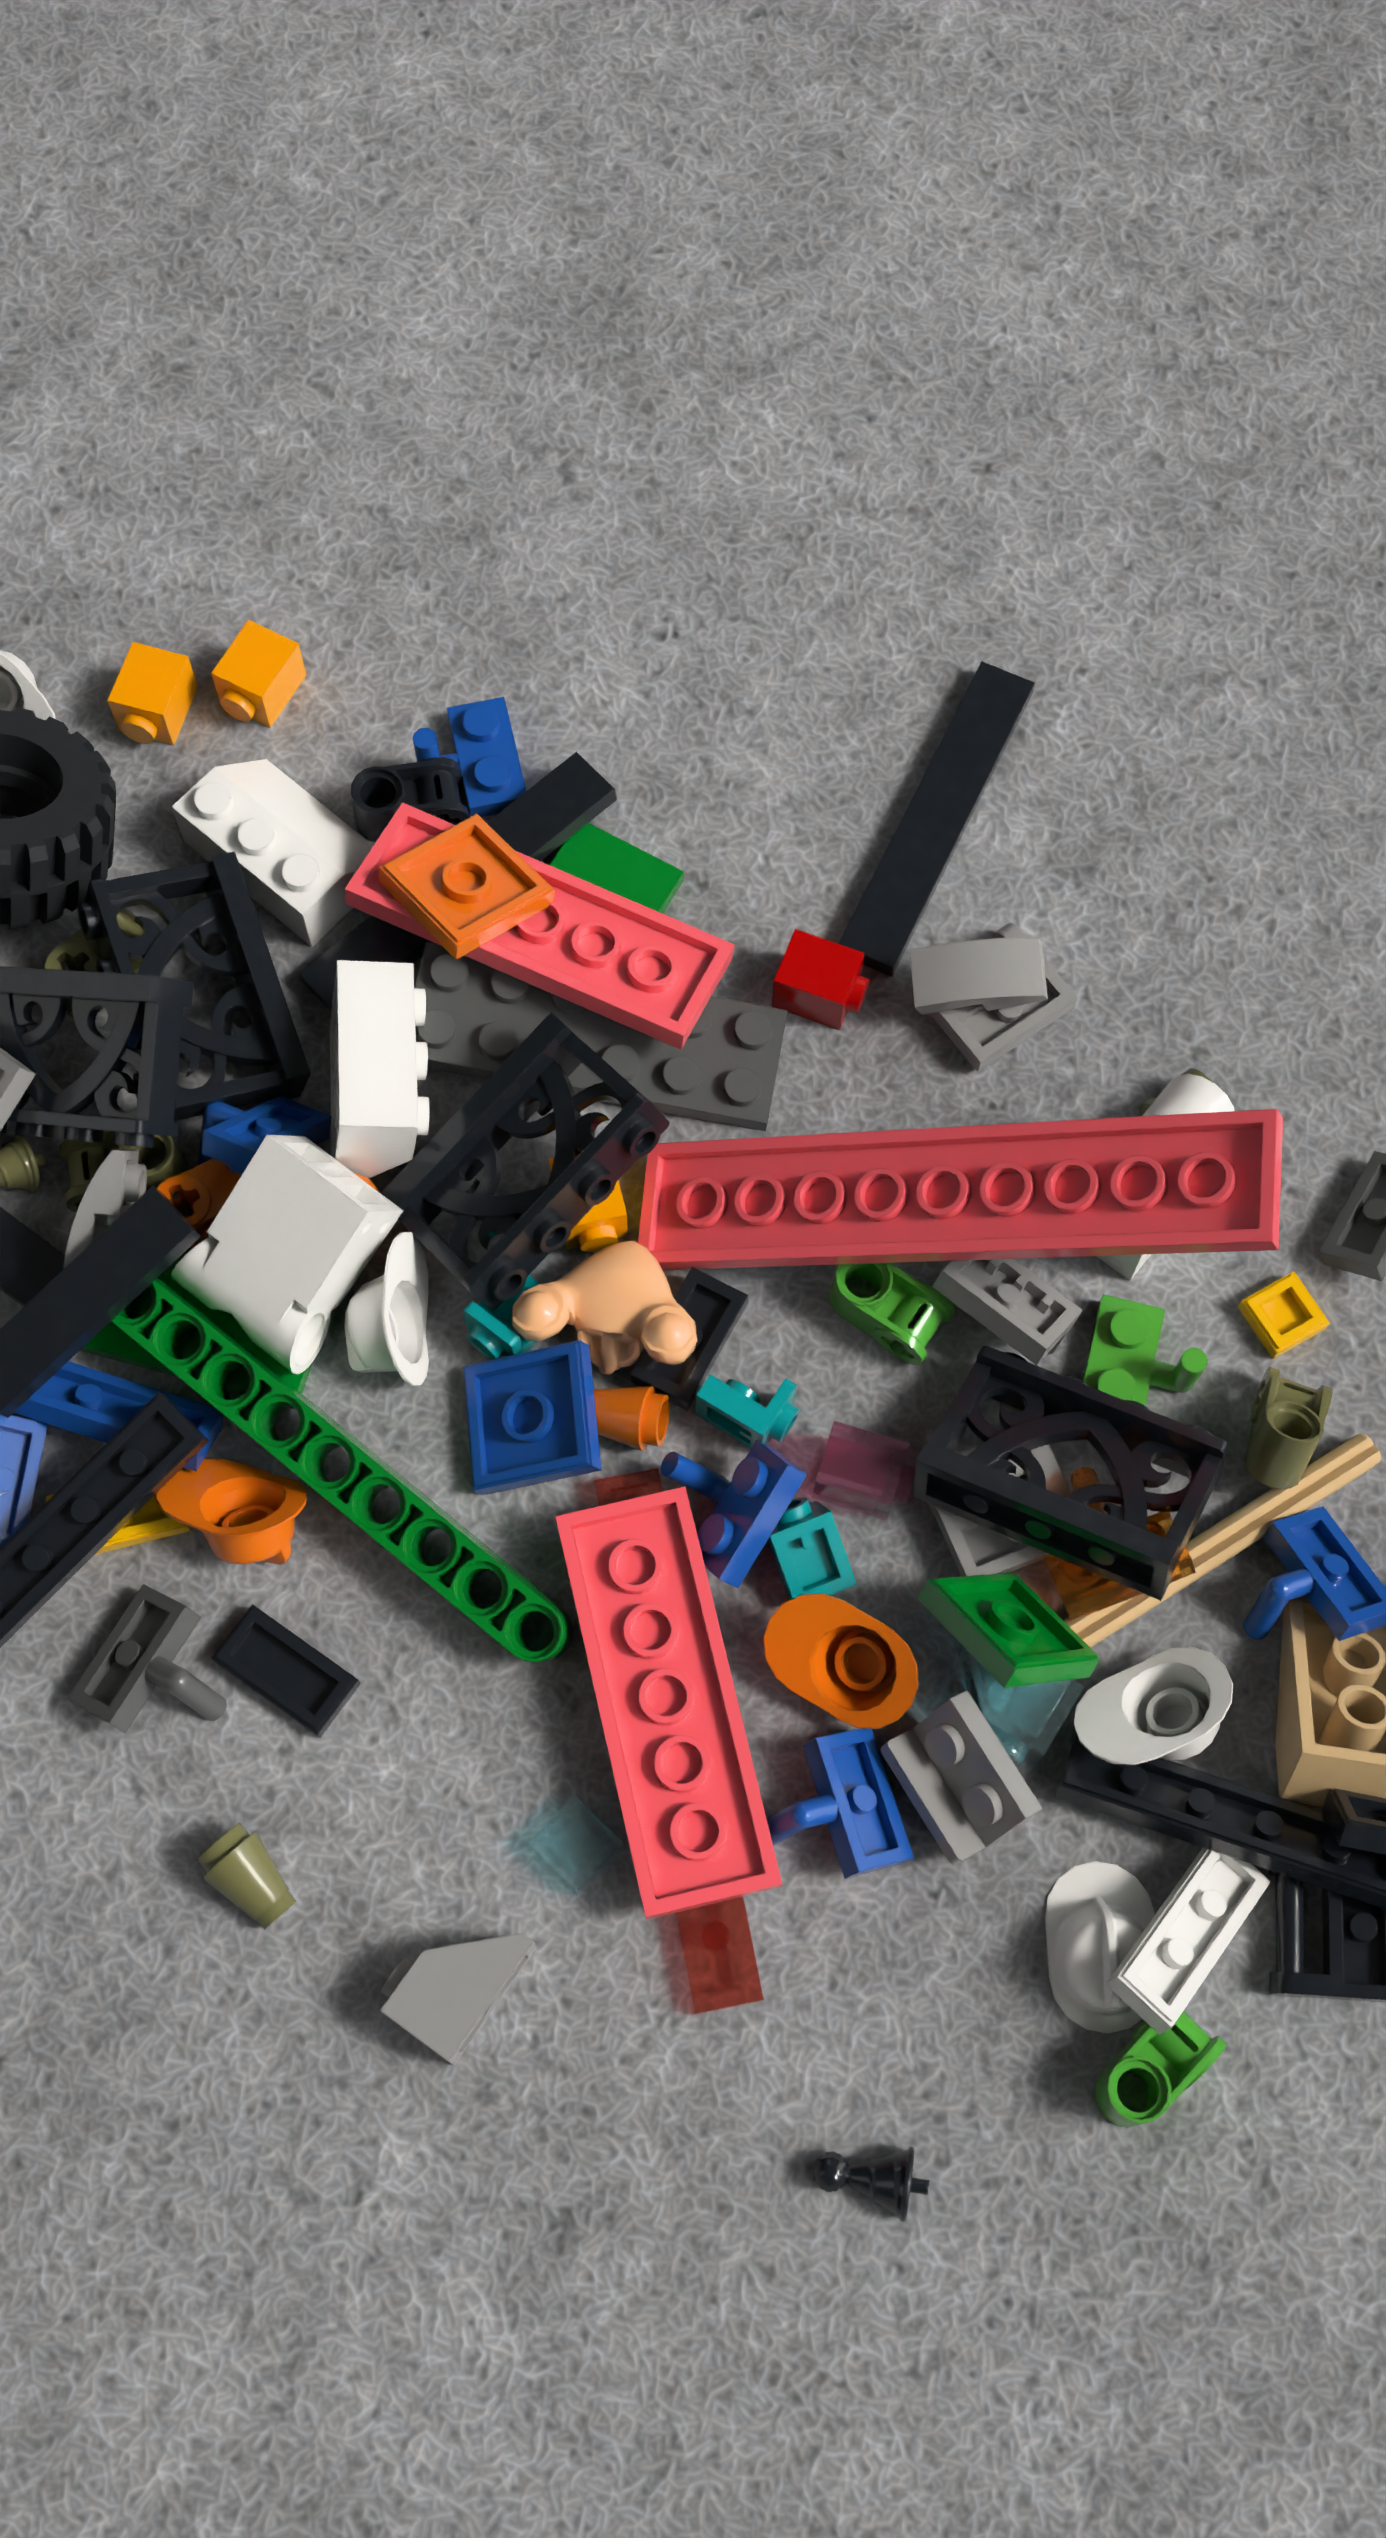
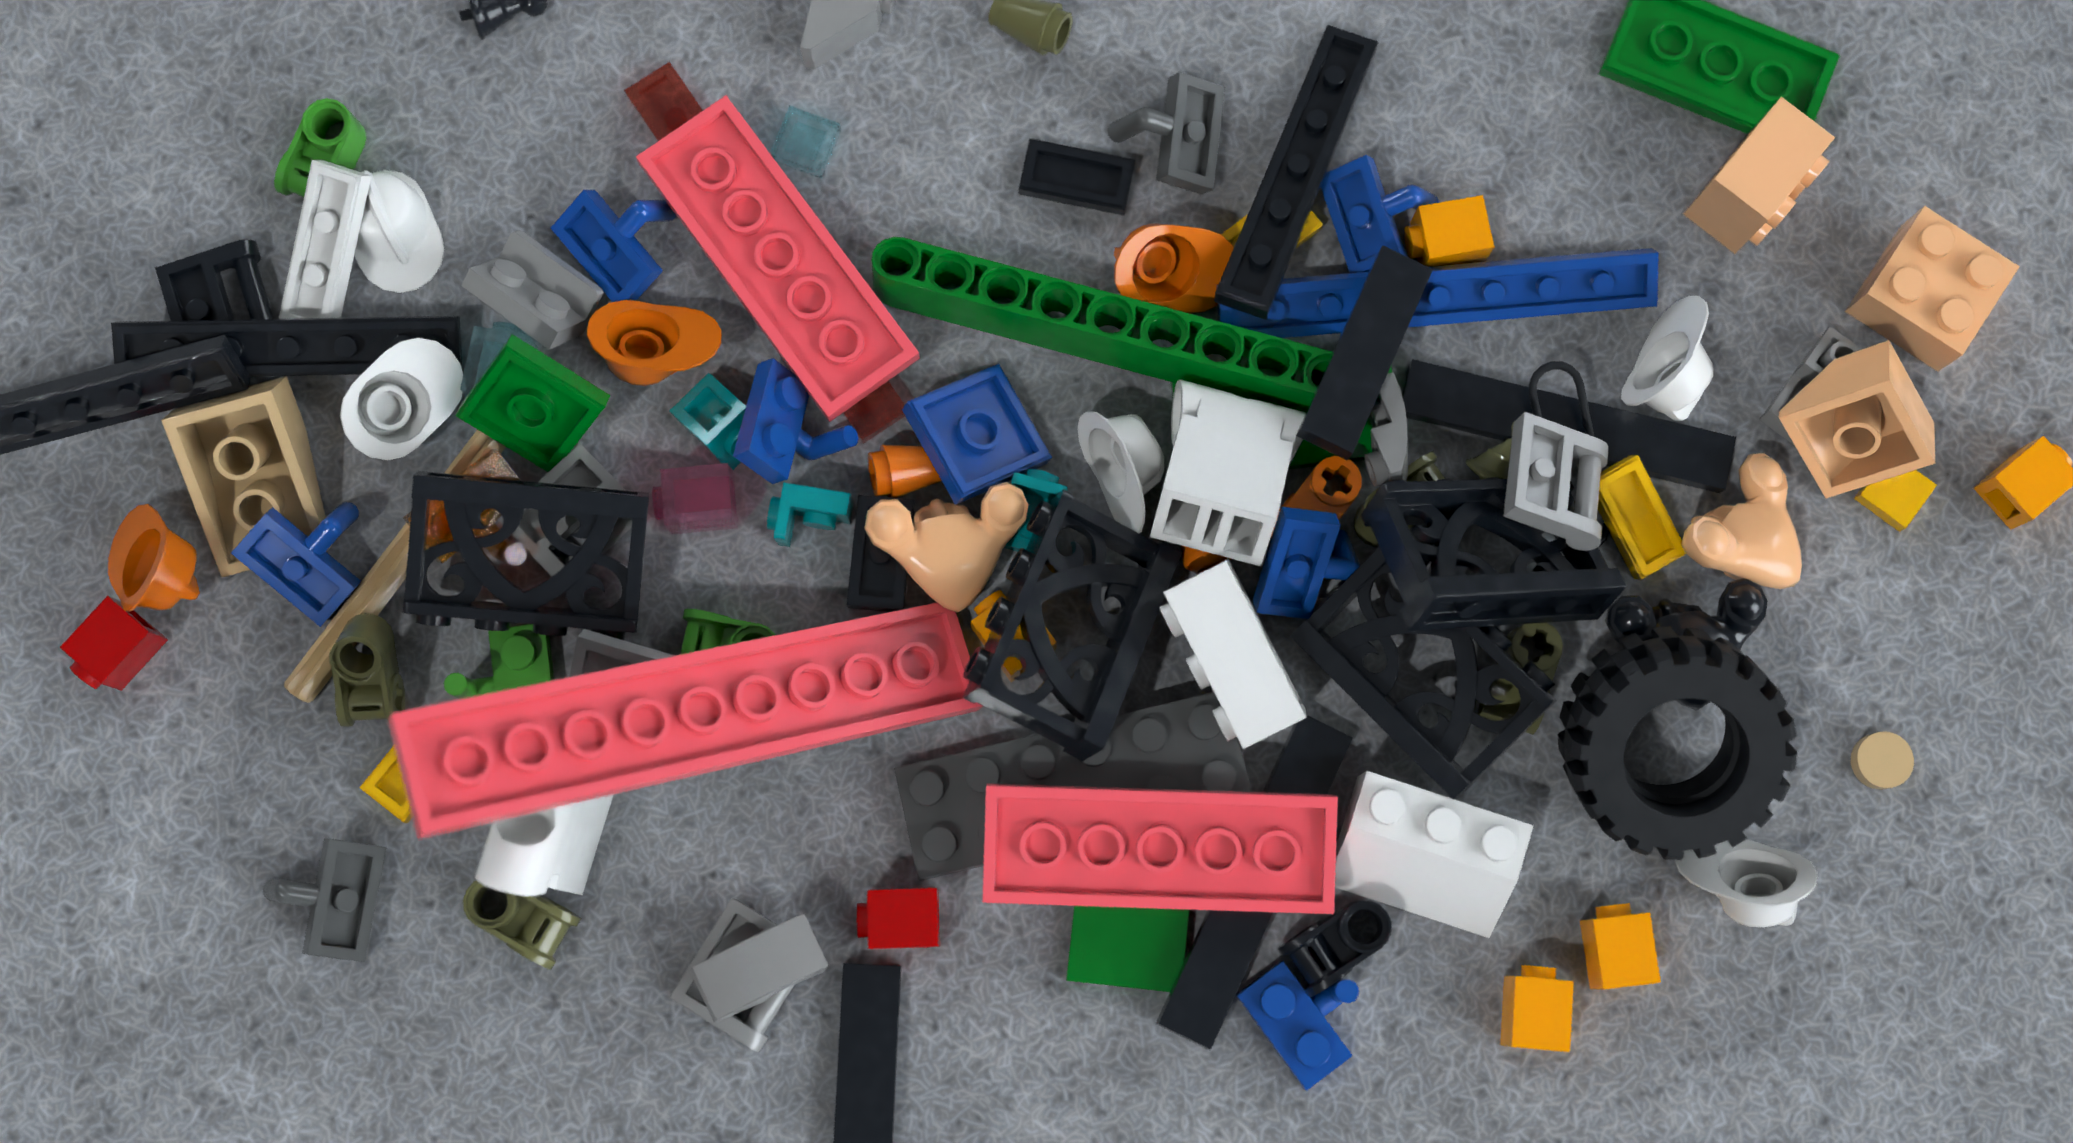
camera: 155 degrees right, 10 degrees up
(466, 886) = (1235, 847): orange tile -> none

